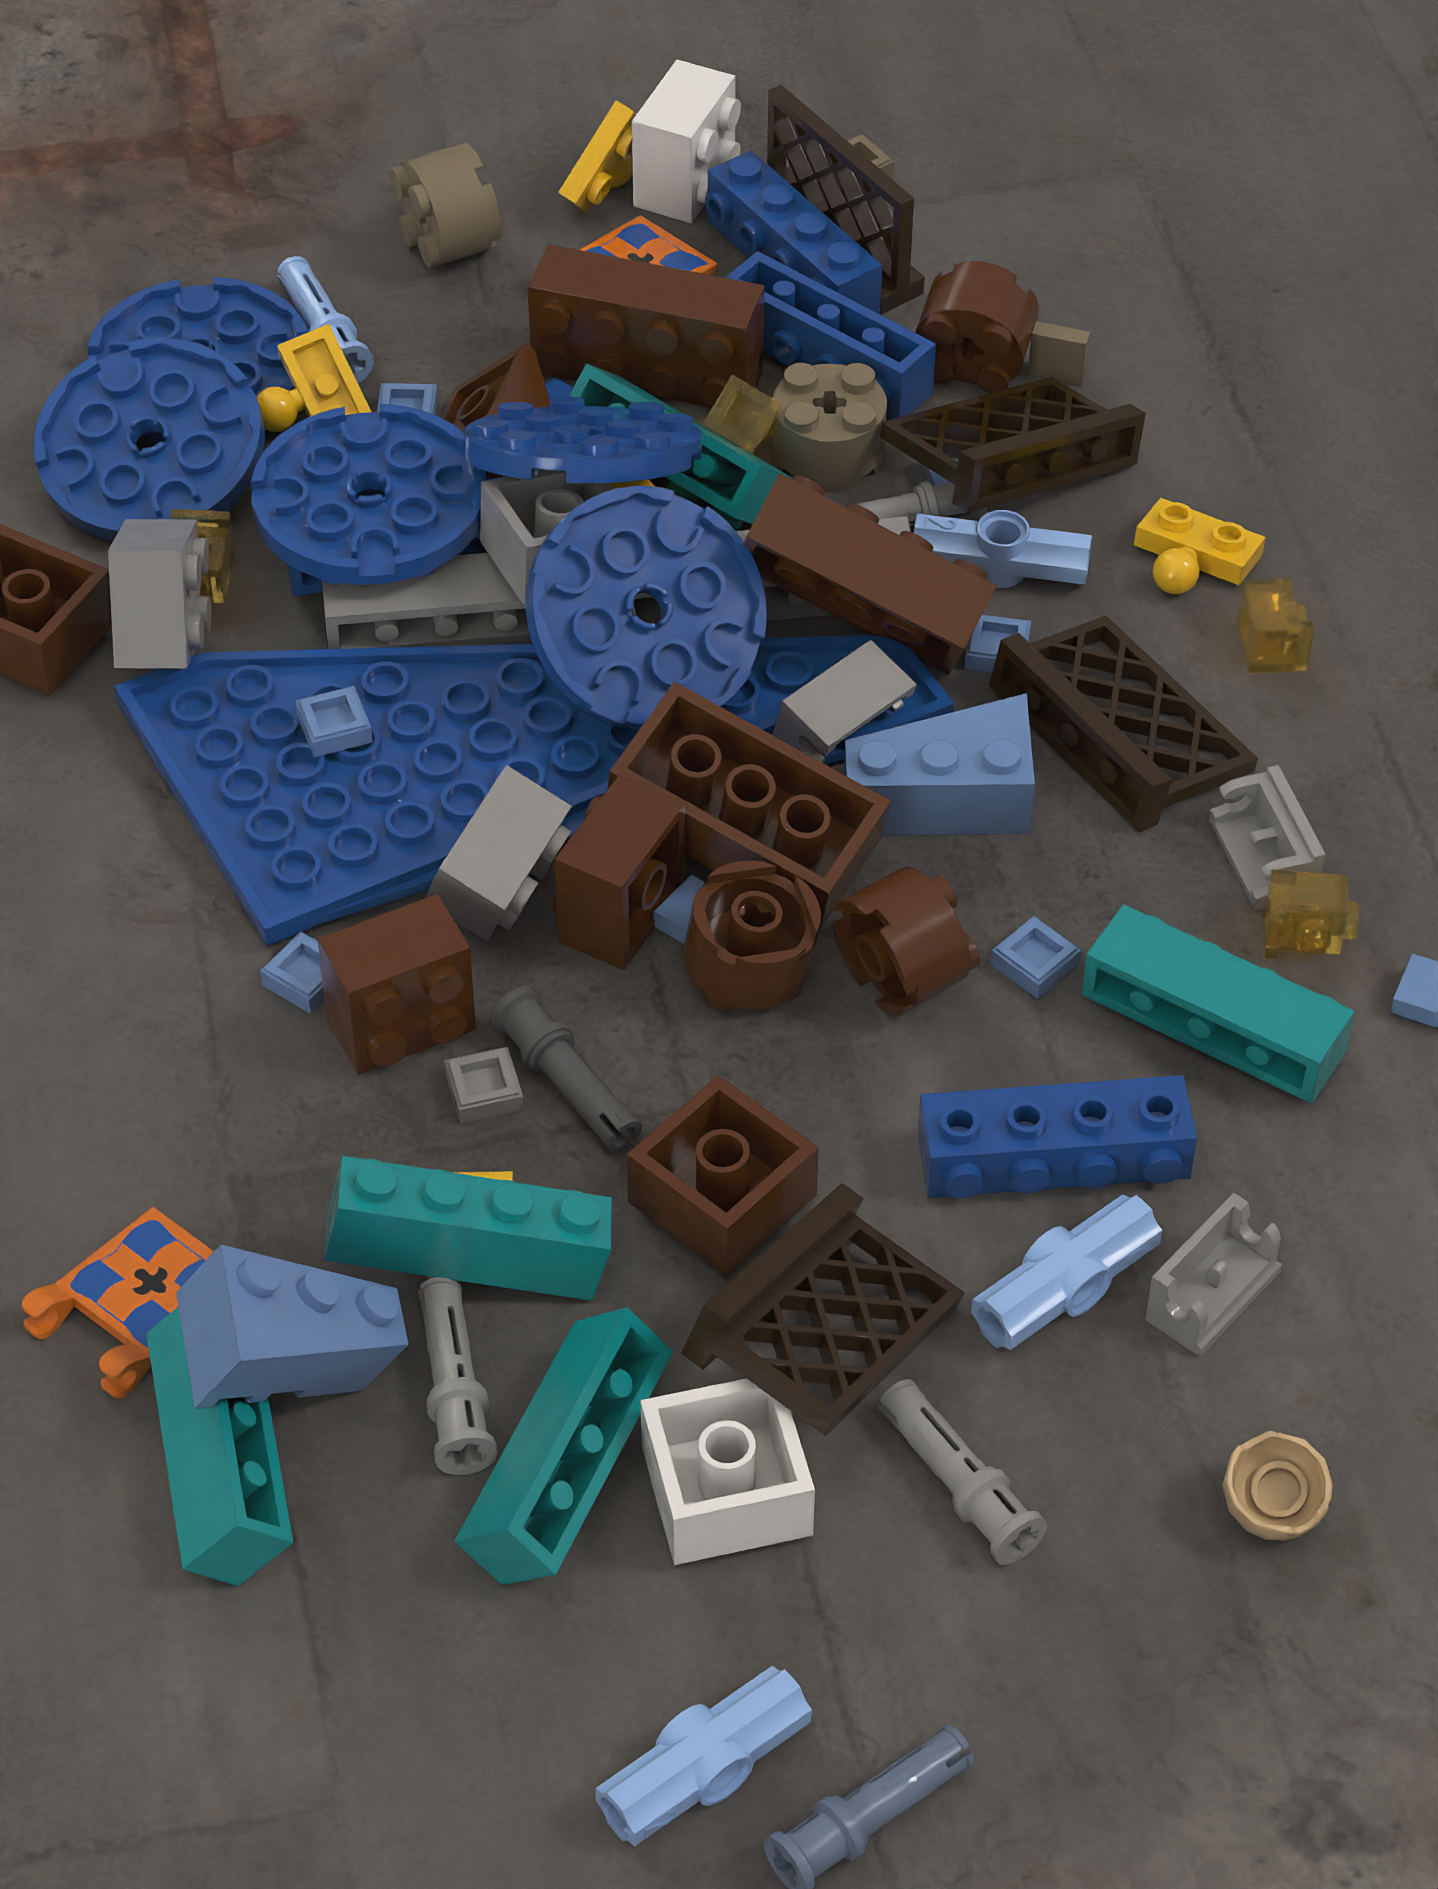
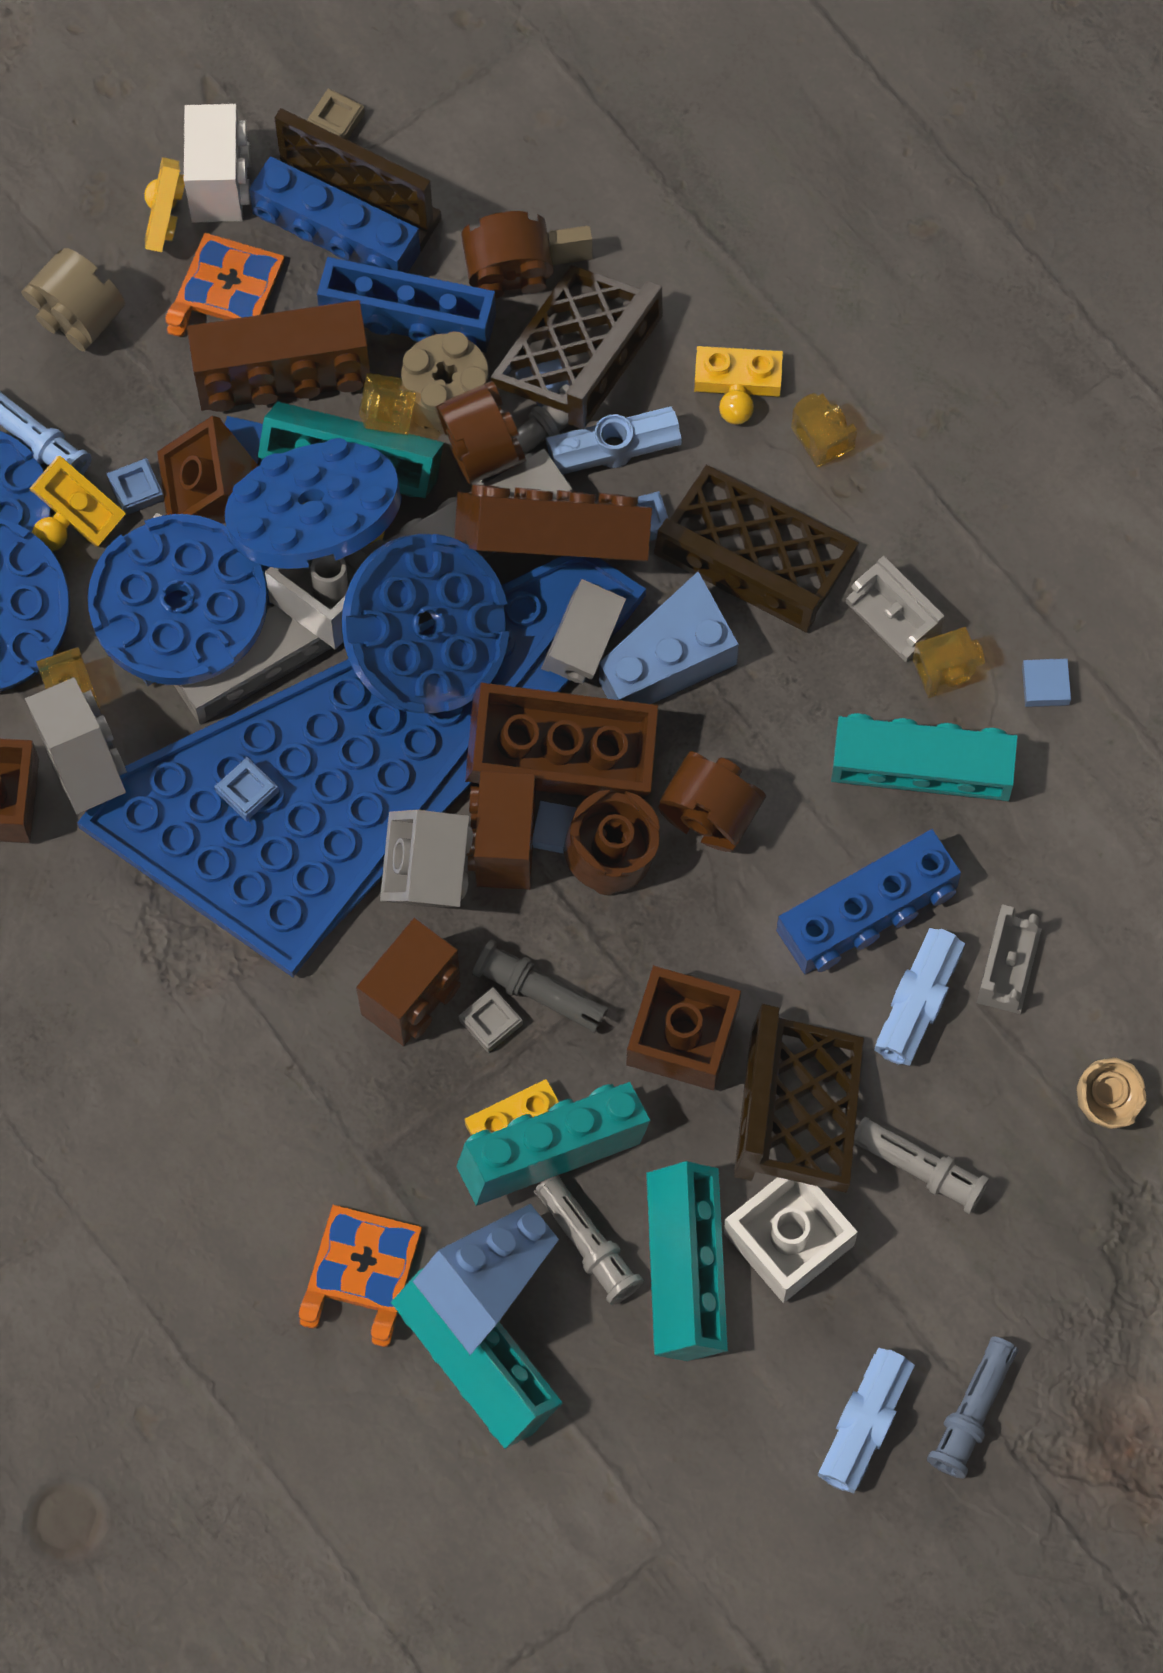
camera: 25 degrees left, 20 degrees up
(296, 973) = (329, 986): medium blue tile -> none
(837, 450) = (480, 433): none -> reddish brown brick
(1035, 957) = (788, 764): medium blue tile -> none

